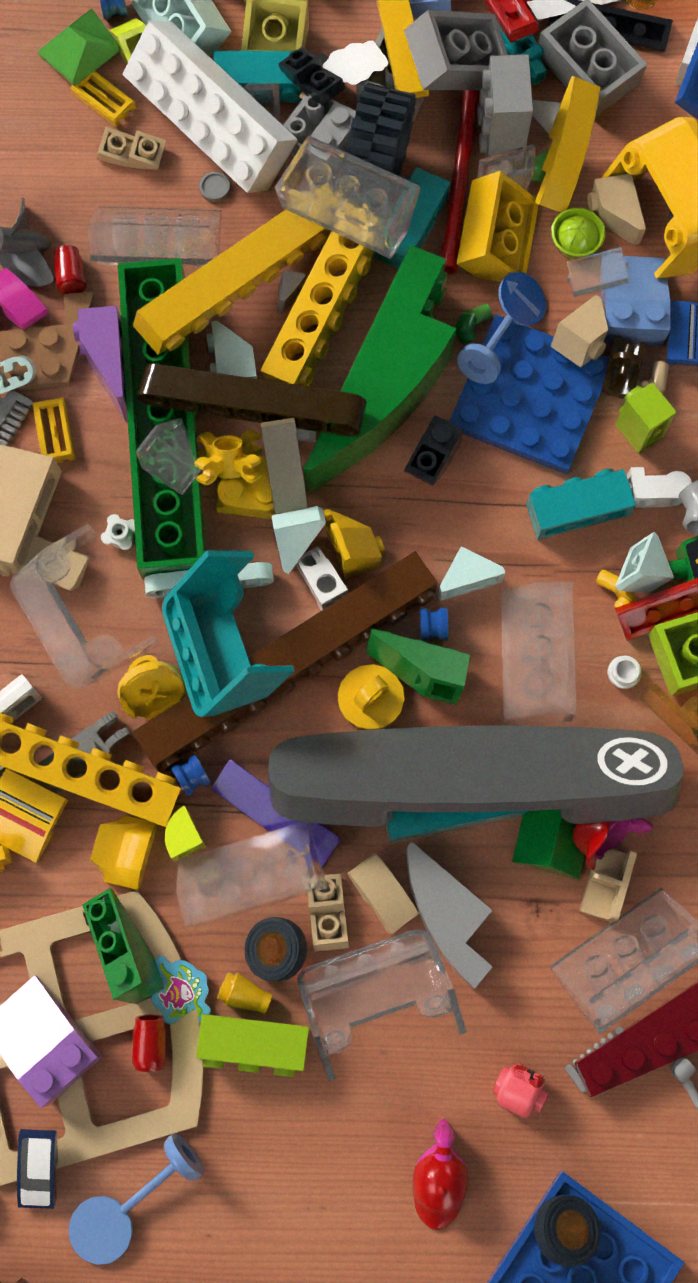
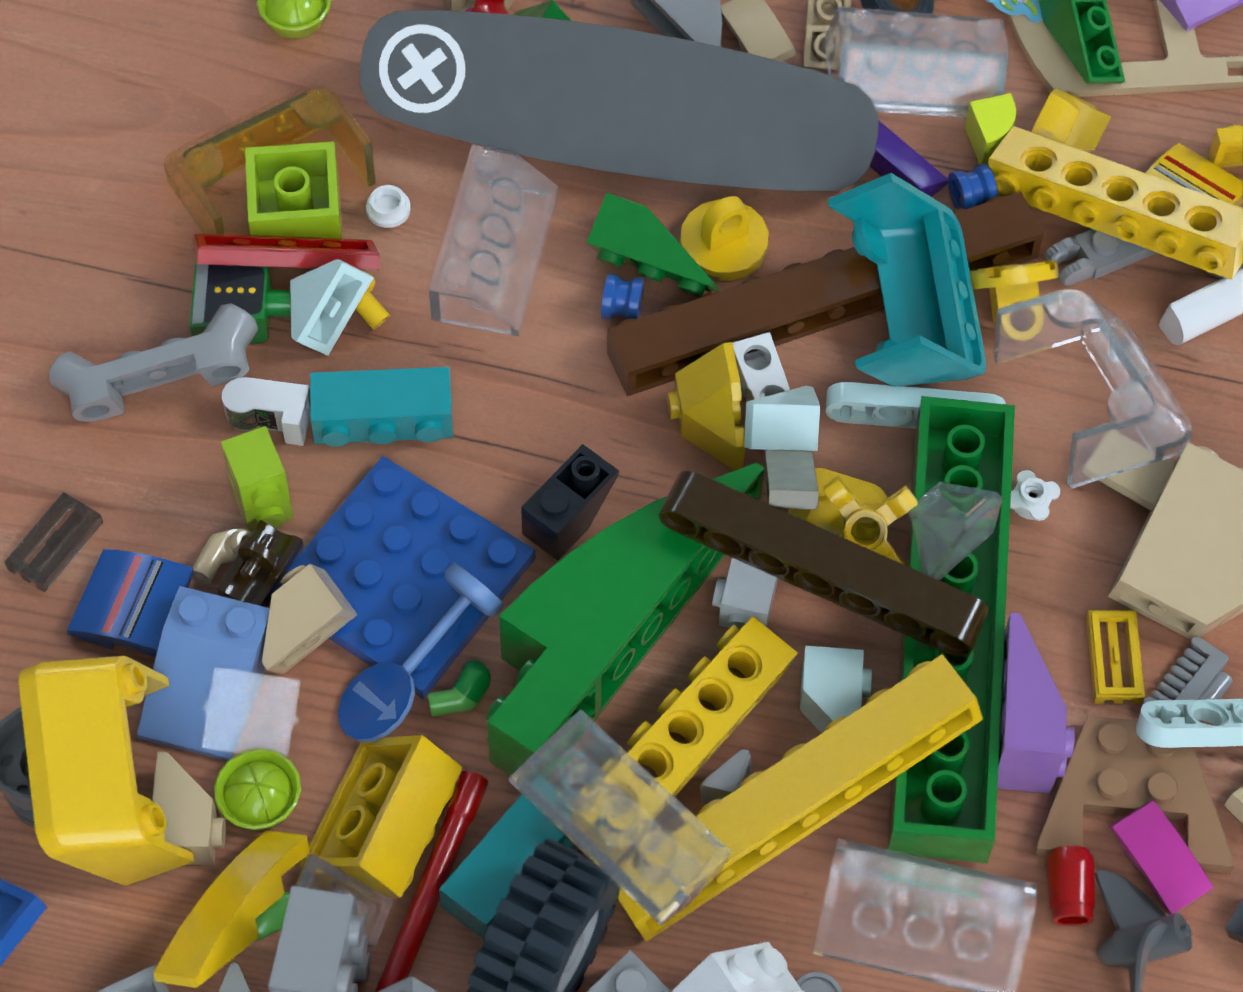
camera: 170 degrees left, 15 degrees down
(468, 574) = (560, 347): light aqua slope -> none

